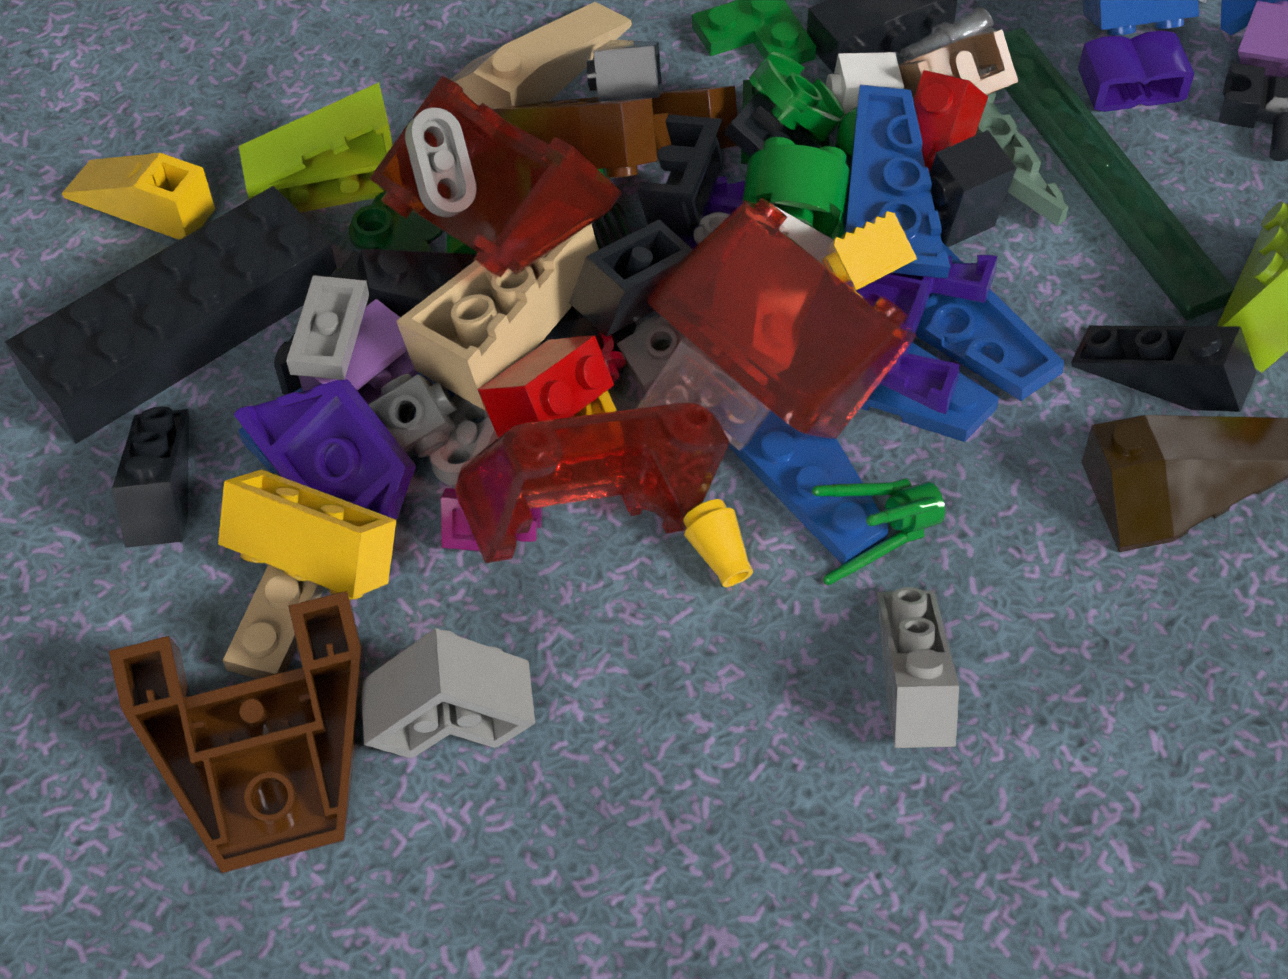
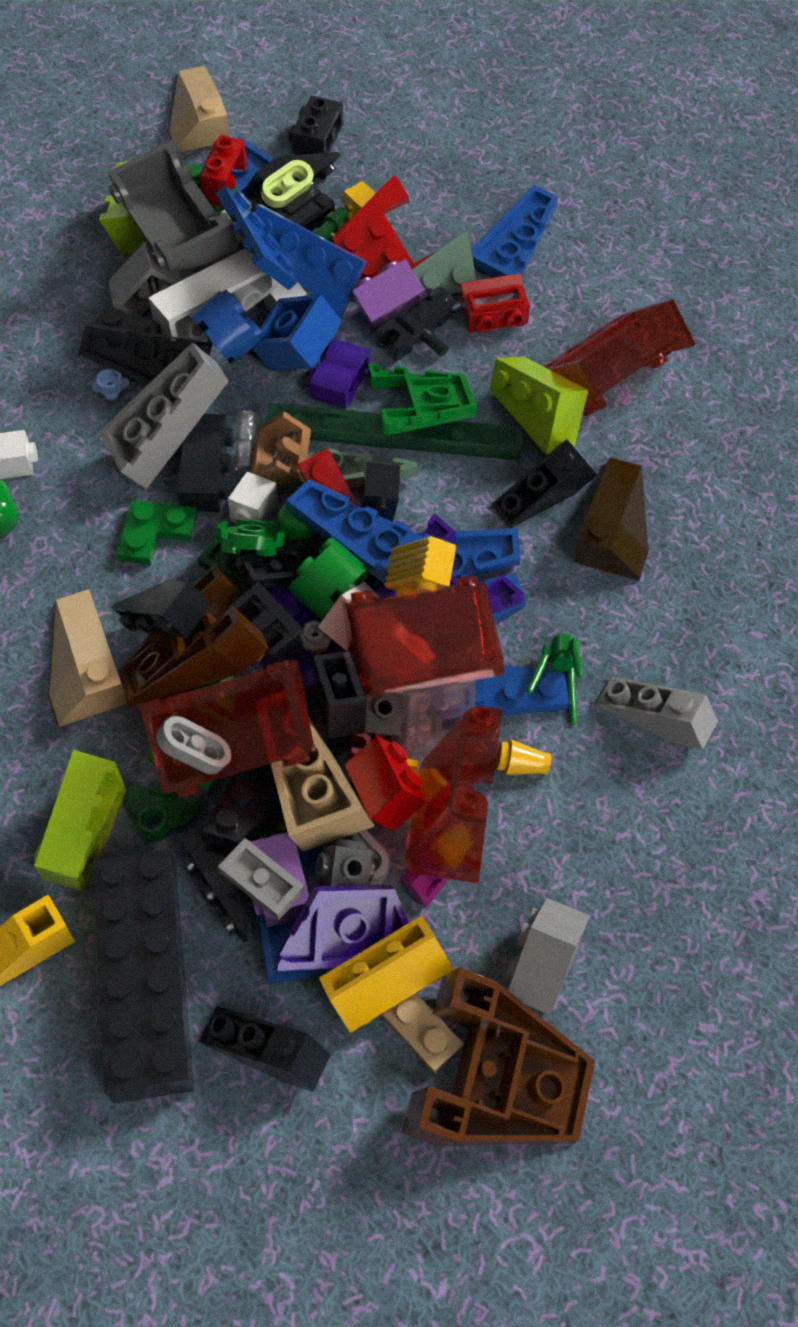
camera: 60 degrees left, 5 degrees up
(1178, 173) = (432, 398): none -> green wing

